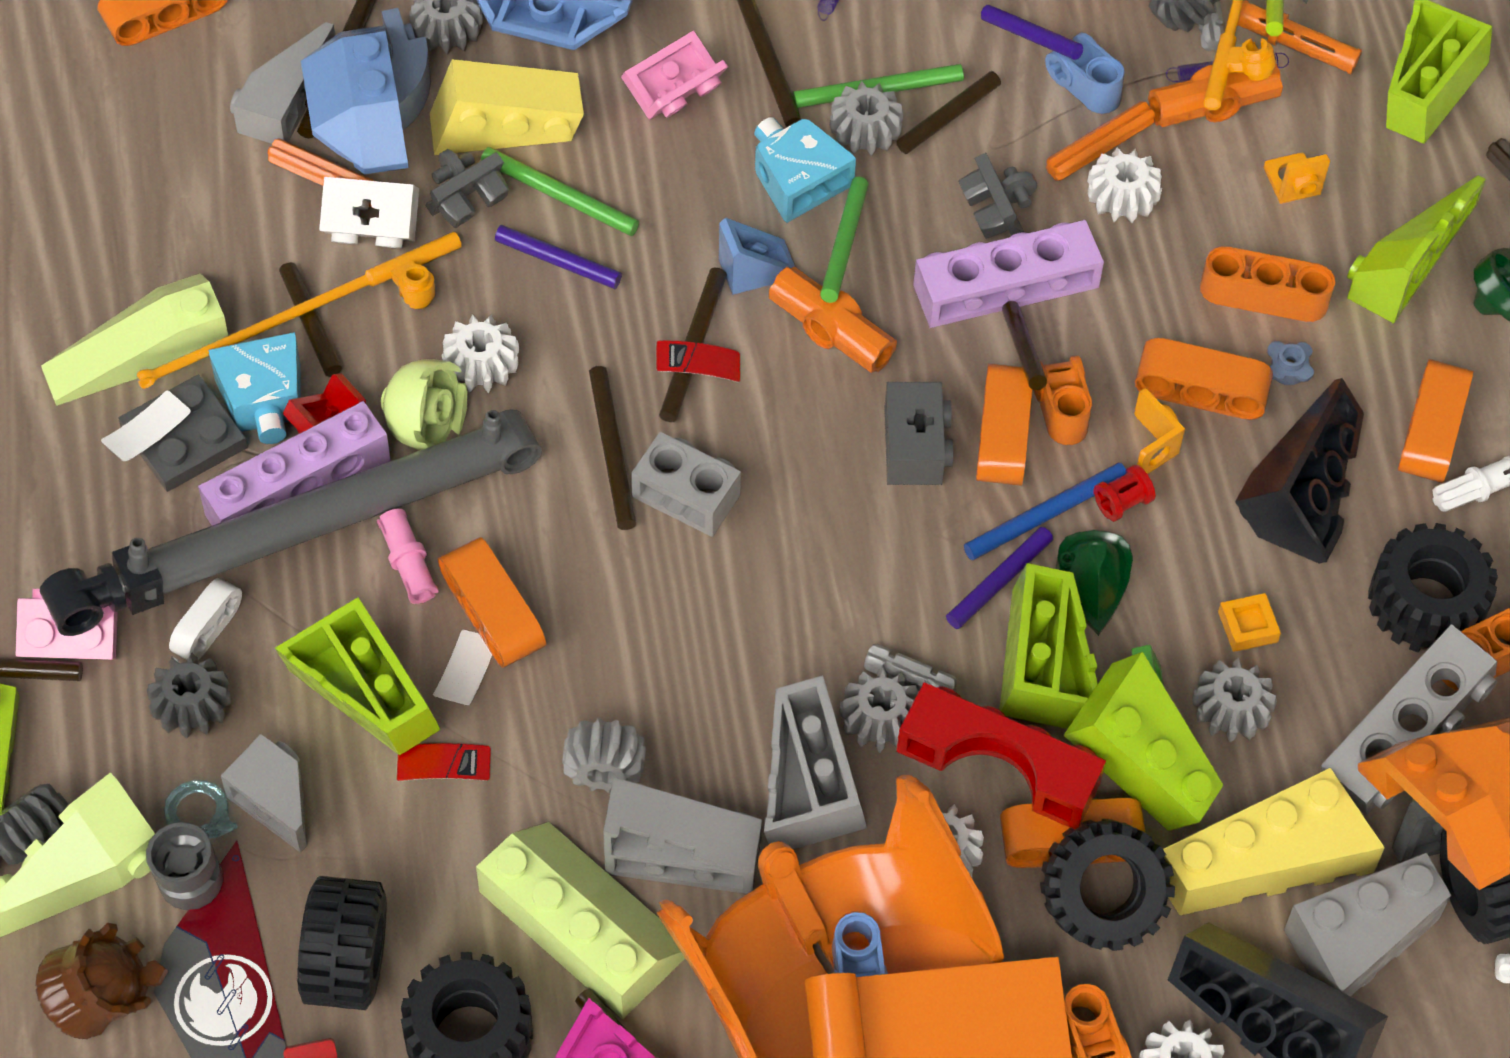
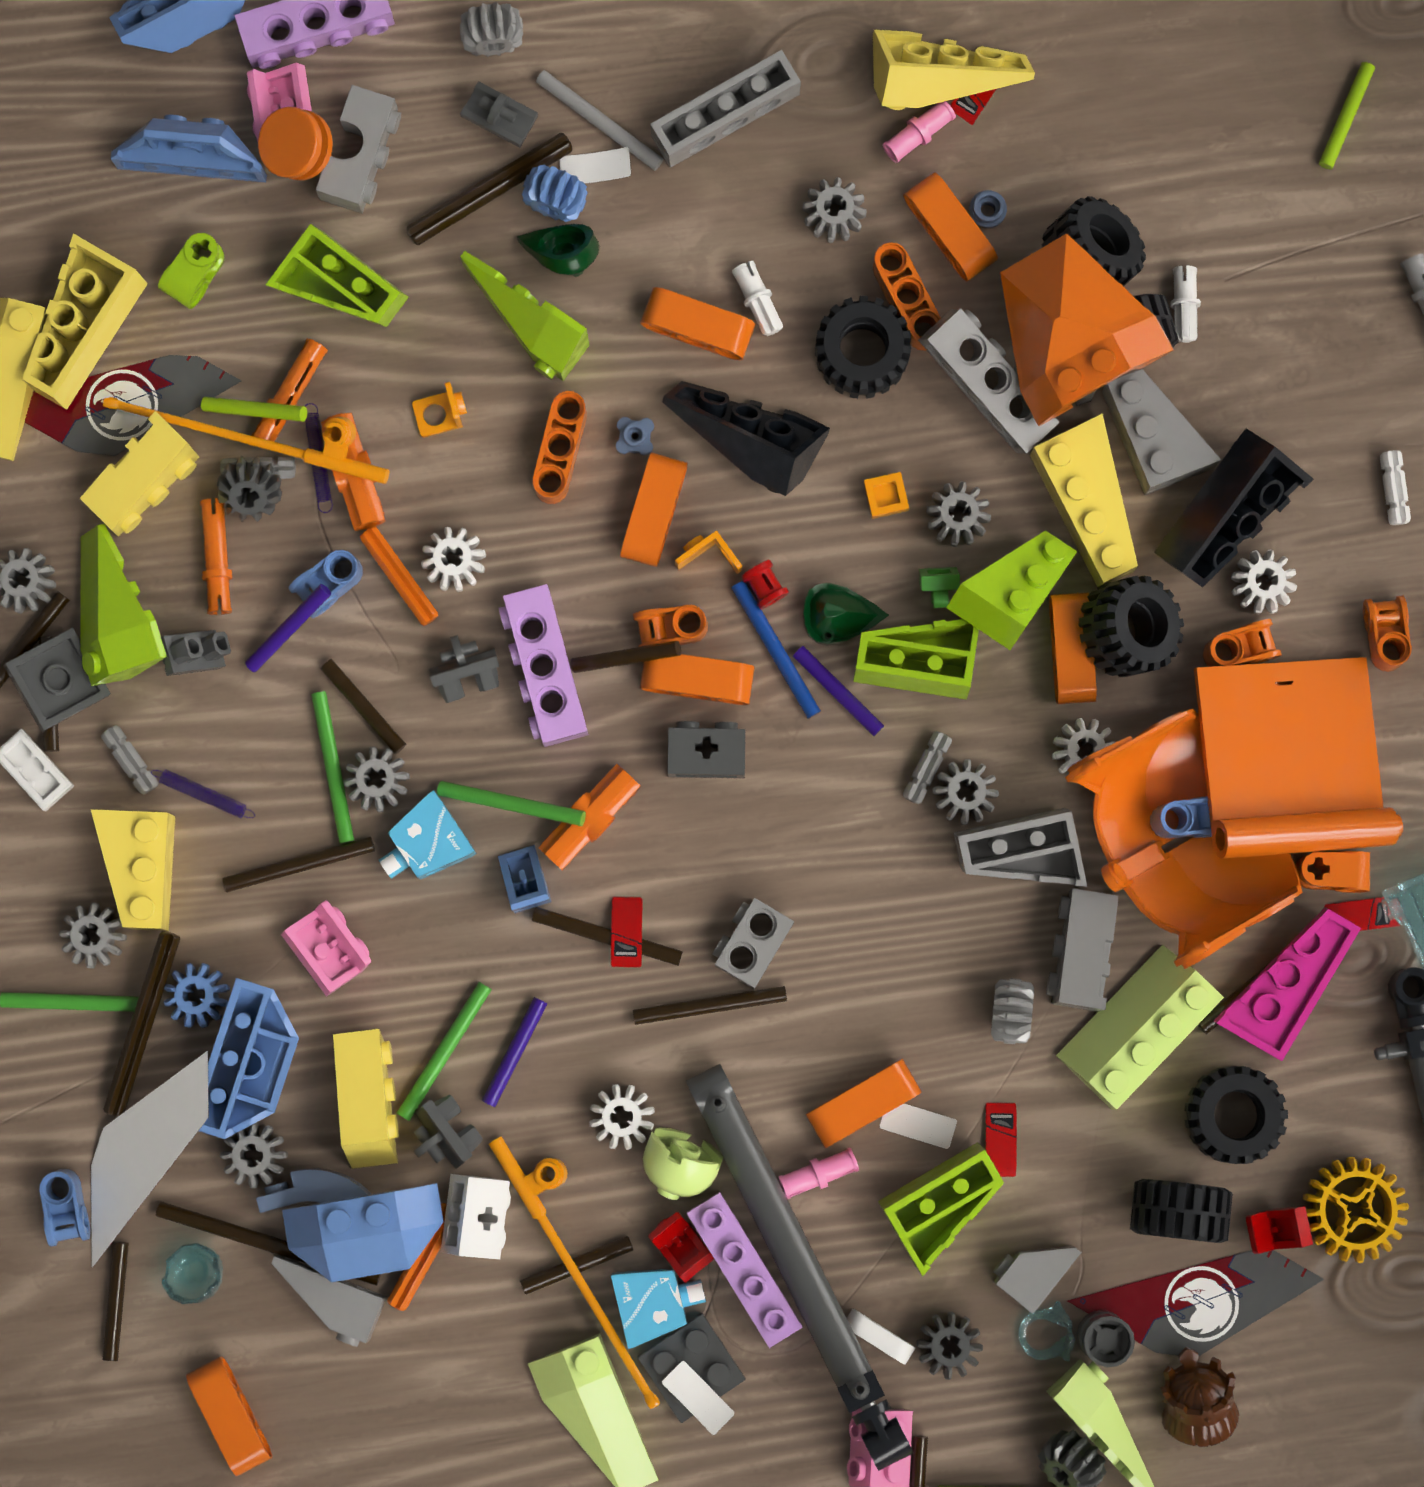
camera: 85 degrees left, 25 degrees up
(948, 728) = (1048, 656): red arch -> none

